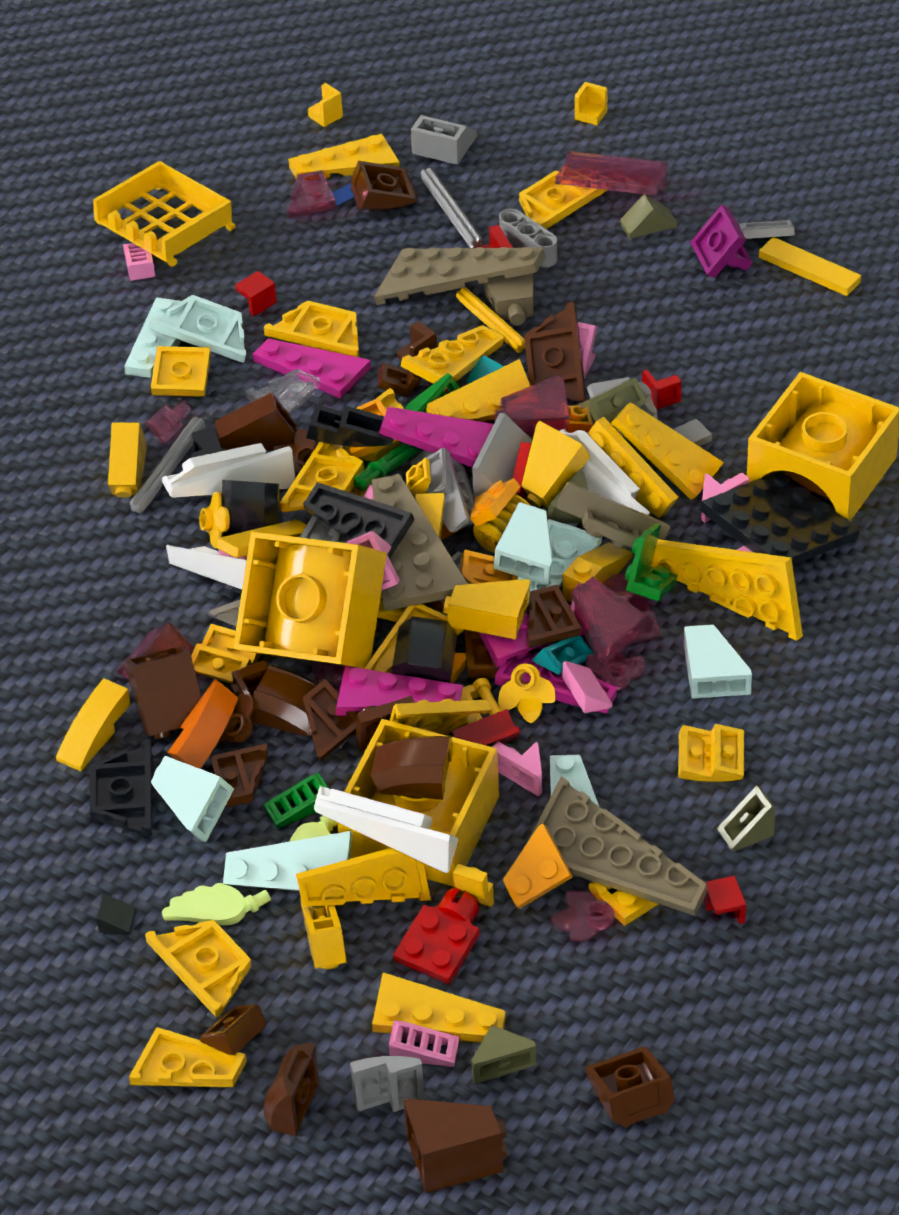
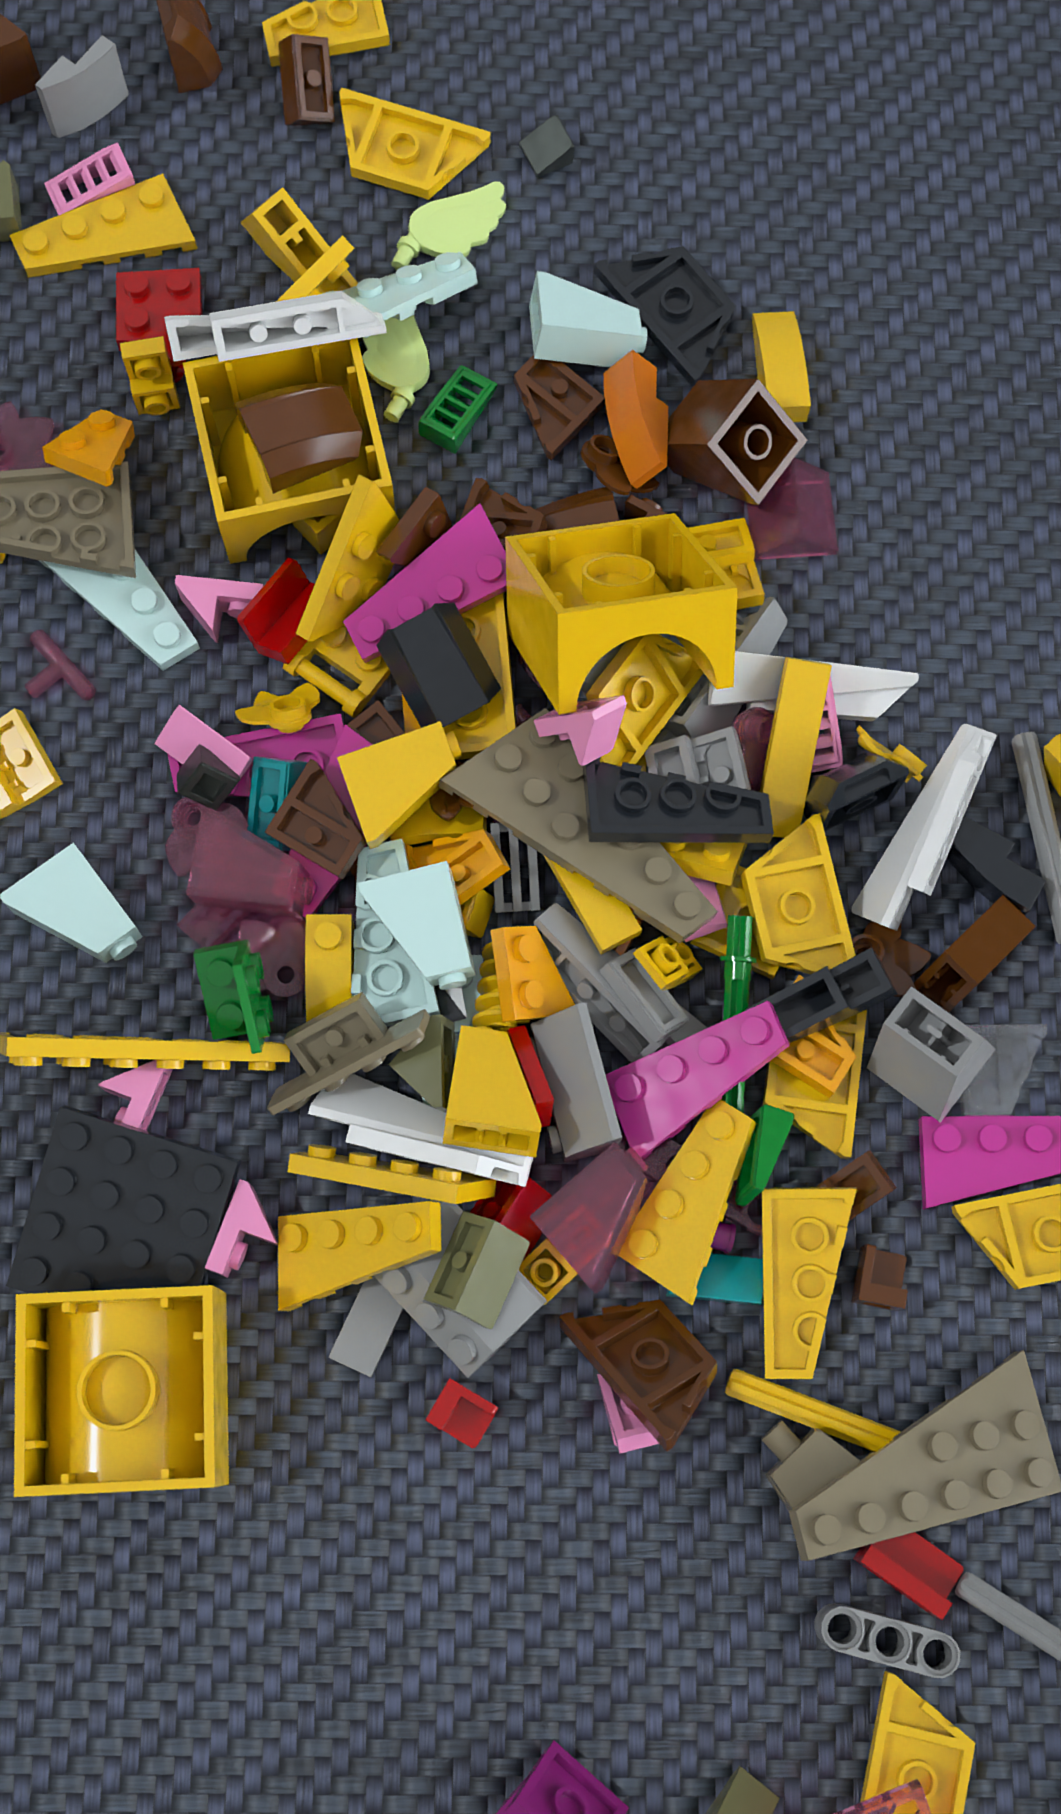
camera: 140 degrees right, 30 degrees up
(307, 387) = (928, 1054): none -> light grey slope
(596, 673) = (206, 778): none -> pearl dark grey slope
(641, 787) = (59, 667): none -> clear pink piece

